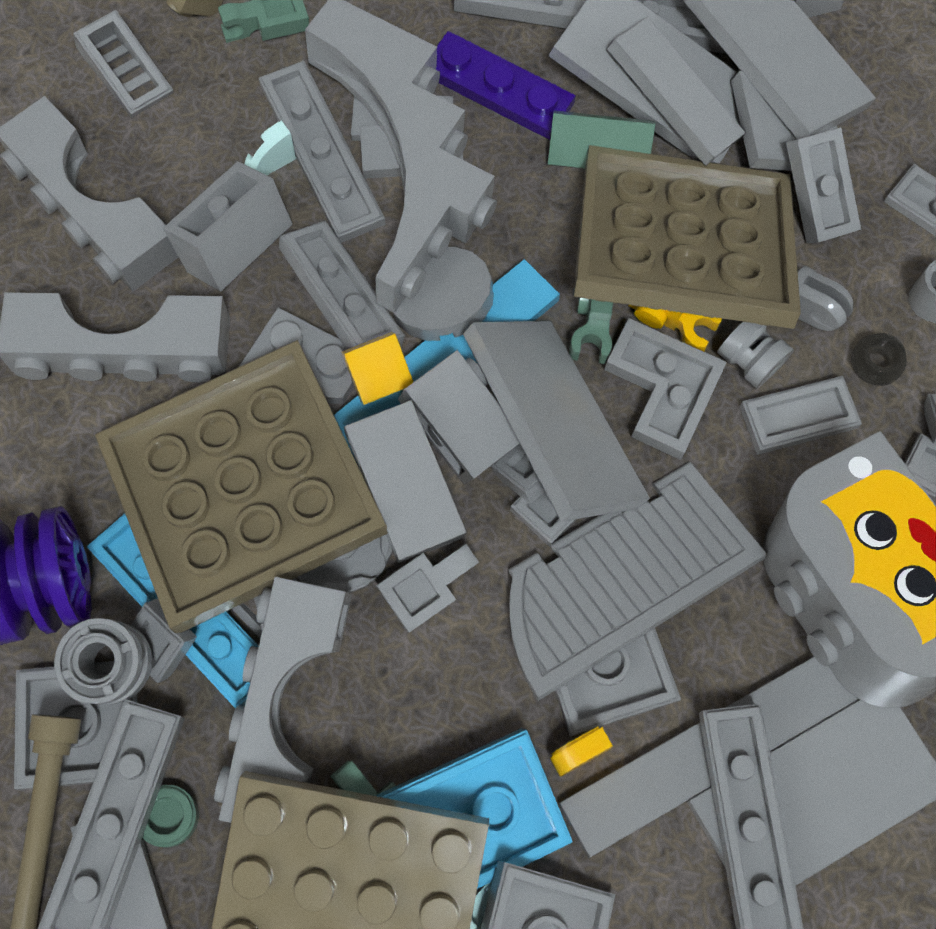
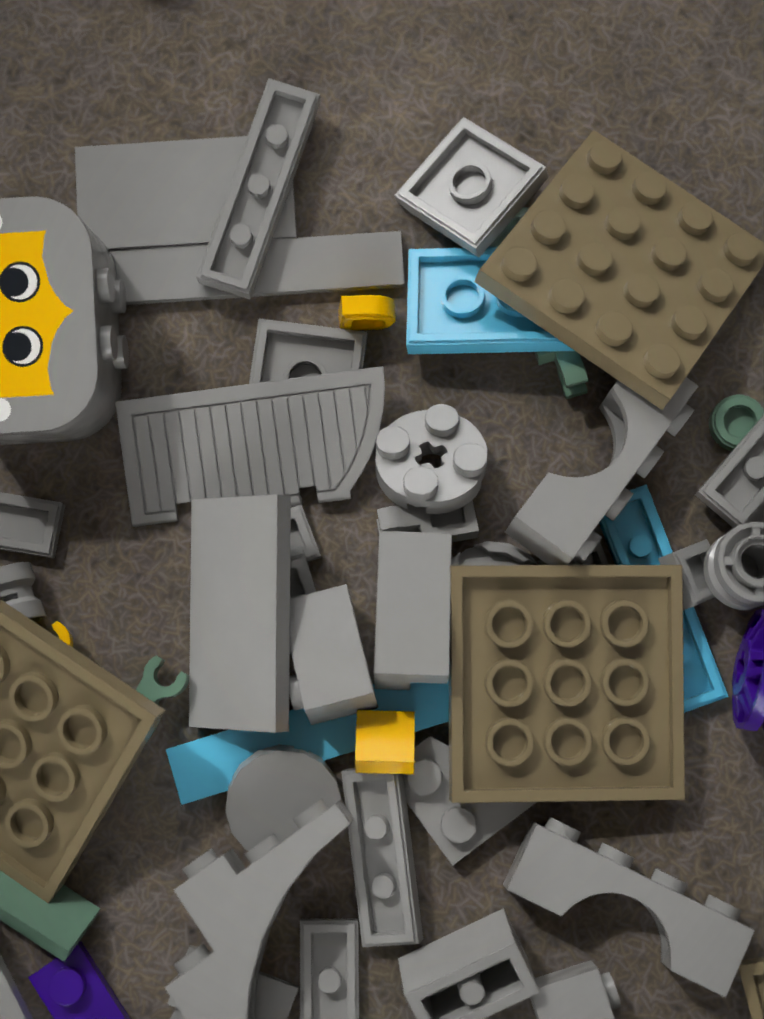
camera: 150 degrees left, 10 degrees up
(460, 664) = (431, 432): none -> light grey plate
(677, 377) = (99, 600): light grey plate -> none

